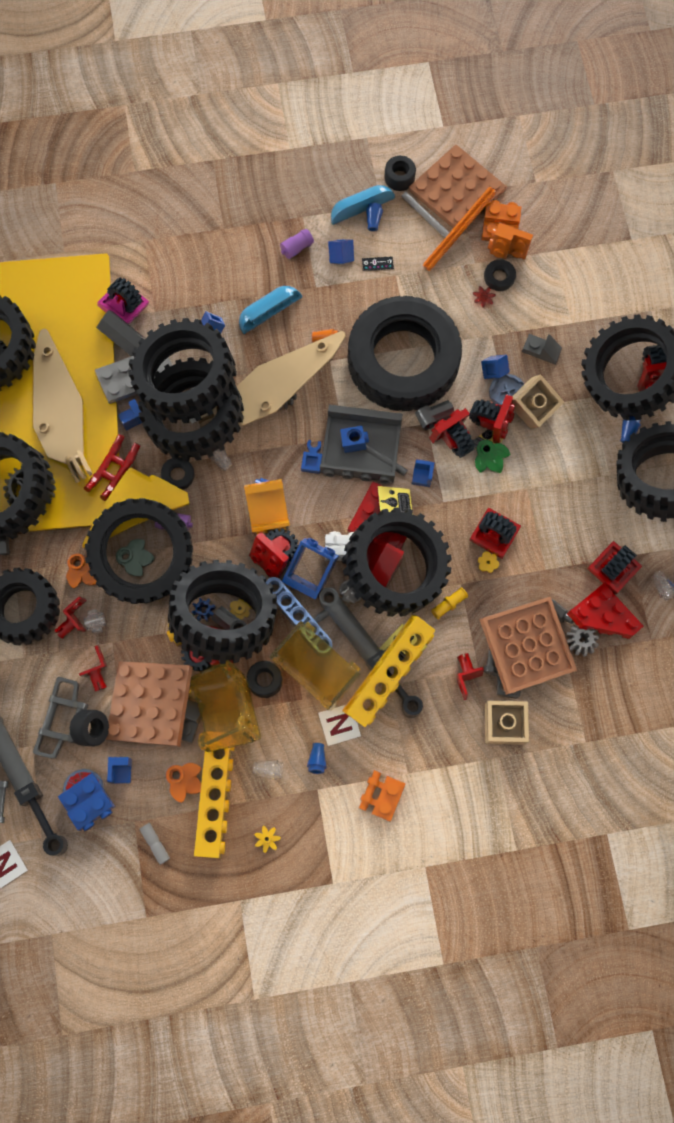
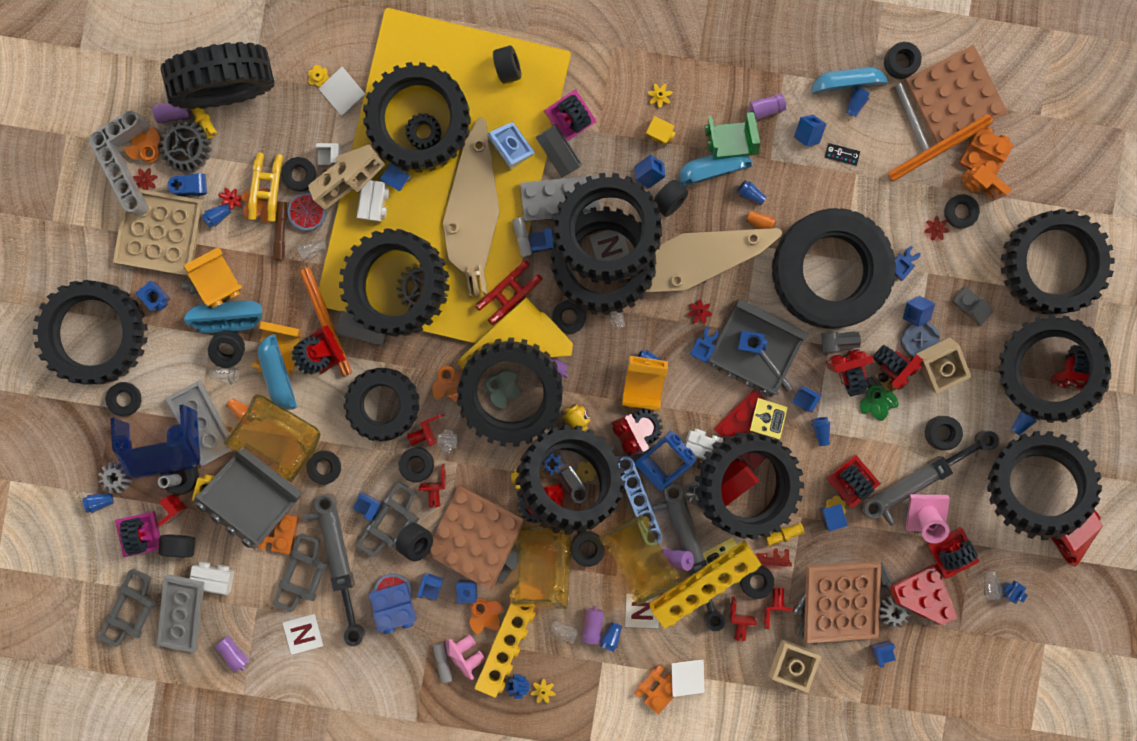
camera: 15 degrees right, 15 degrees up
(33, 711) = (367, 506): none -> blue panel
(51, 276) = (507, 64): none -> black tyre
(66, 643) = (404, 467): none -> black tyre
(75, 342) = (510, 145): none -> light blue slope
(111, 417) = (521, 234): none -> light grey piece
(157, 760) = (466, 591): none -> blue brick
(164, 827) = (455, 652): none -> bright pink connector
(199, 265) = (660, 99): none -> yellow plant
(208, 291) = (660, 131): none -> yellow brick
(211, 554) = (576, 415): none -> yellow head
(238, 340) = (670, 197): none -> black tyre
(238, 840) = (517, 686): none -> blue gear
(276, 277) = (733, 138): none -> panel
(294, 752) = (592, 625): none -> medium lavender piece
(297, 434) = (696, 308): none -> red plant
(307, 316) = (750, 192): none -> blue cone
(359, 655) = (679, 559): none -> medium lavender piece
(407, 773) = (688, 678): none -> white sticker
(434, 667) = (762, 592): none -> black tyre
(440, 700) = (741, 621): none -> red bracket
(448, 497) = (821, 428): none -> blue cone
(449, 630) = (775, 560): none -> clear red plate
(467, 332) = (904, 264): none -> blue plate
(489, 570) = (833, 517): none -> blue panel
(558, 509) = (935, 470): none -> dark grey piece
(565, 452) = (954, 439): none -> black tyre
(576, 538) = (928, 515): none -> bright pink plant
(588, 683) = (883, 652): none -> blue panel
(605, 253) = (1096, 254): none -> black tyre

